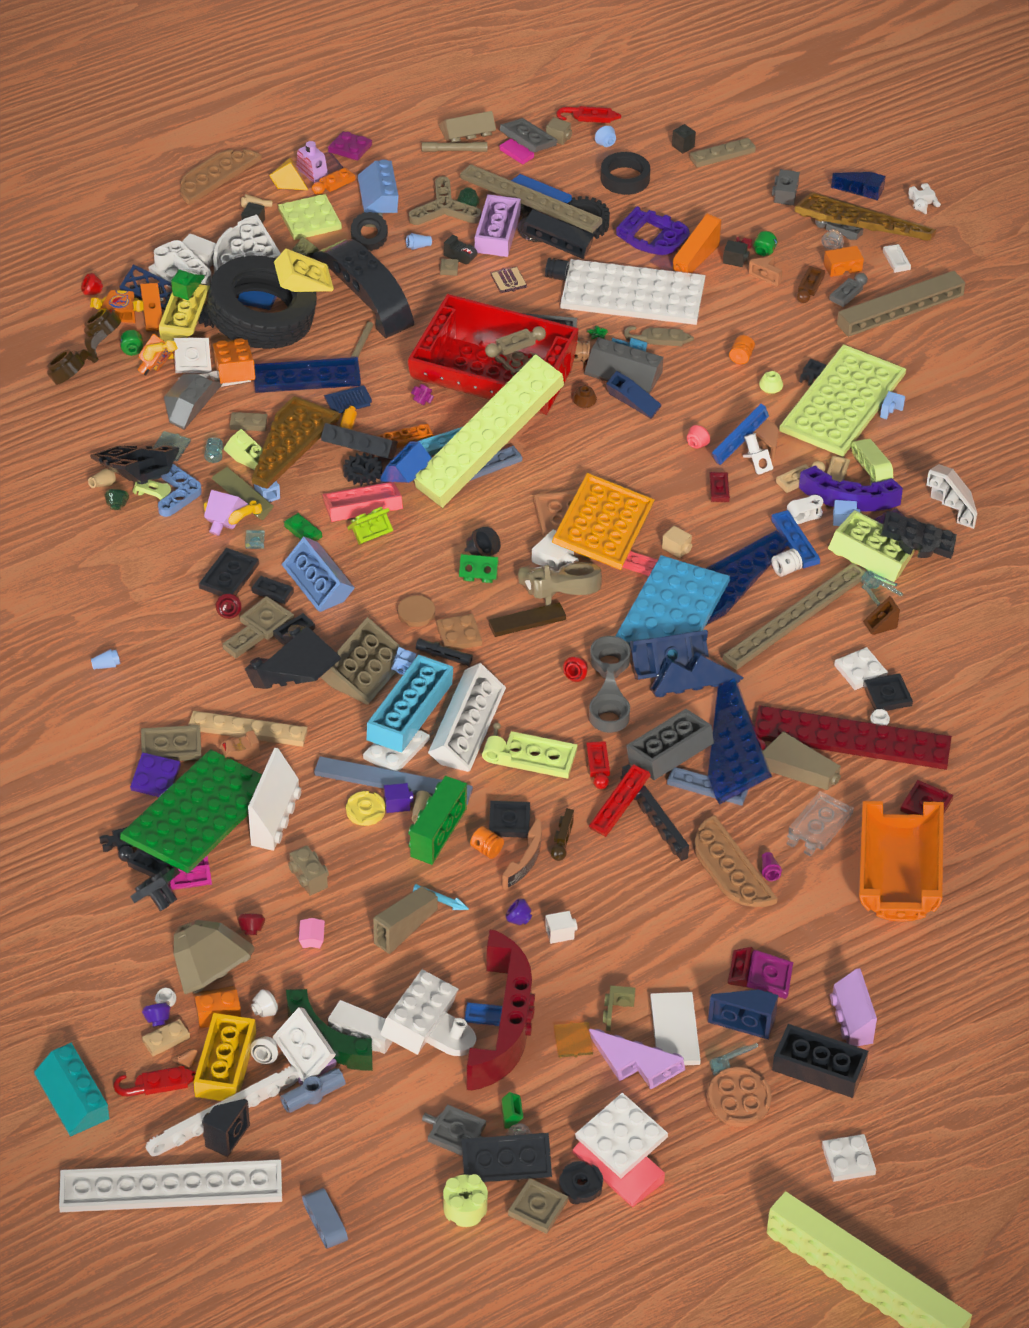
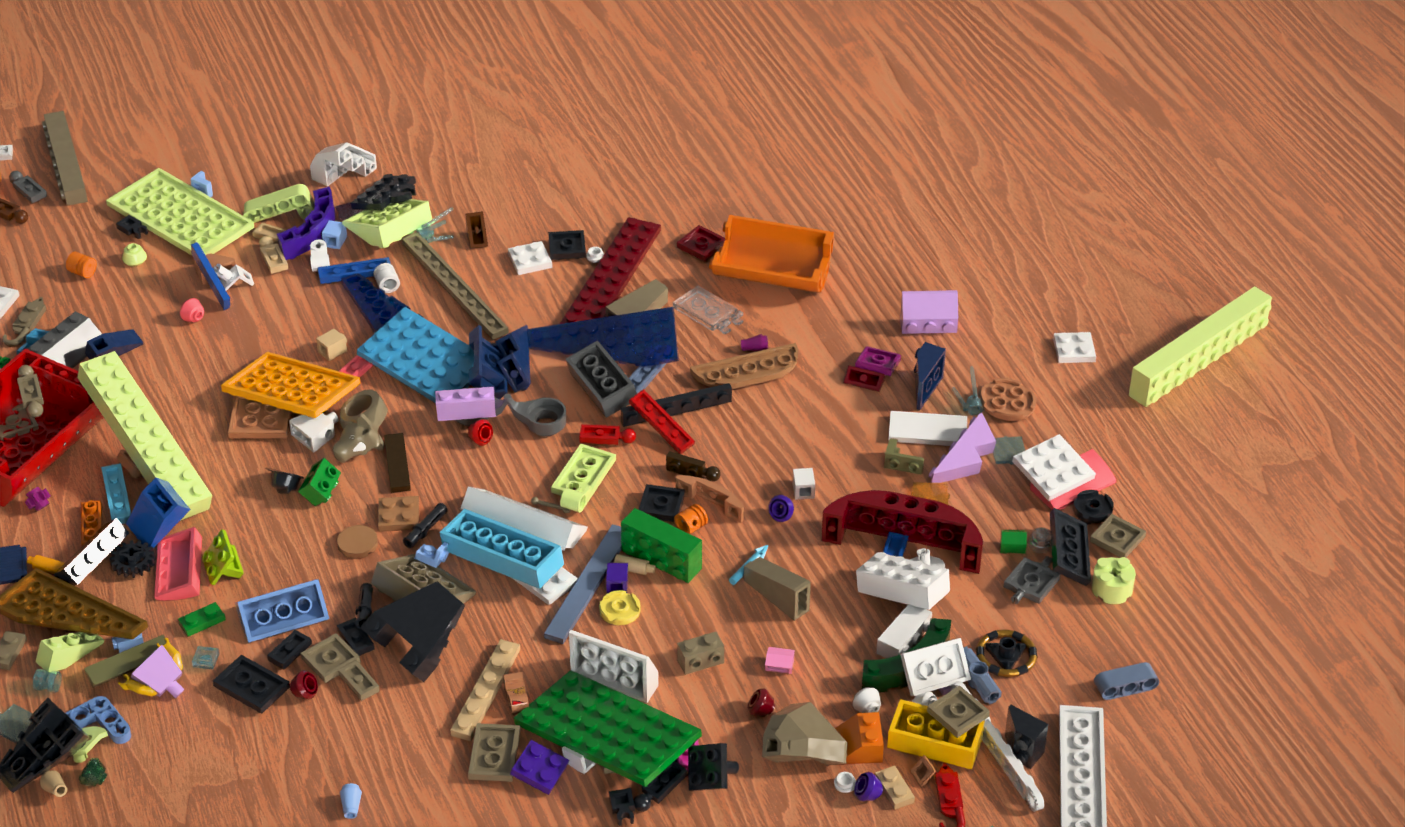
camera: 80 degrees left, 5 degrees down
(237, 1061) = (958, 711): none -> dark tan plate
(331, 626) = (364, 609): none -> black pin
(353, 1117) = (1007, 652): none -> black piece
(600, 642) = (465, 403): none -> lavender slope
(661, 1104) = (1007, 448): none -> clear light blue piece
(719, 487) = (265, 308): dark red plate -> none
(820, 1060) = (980, 341): black brick -> none

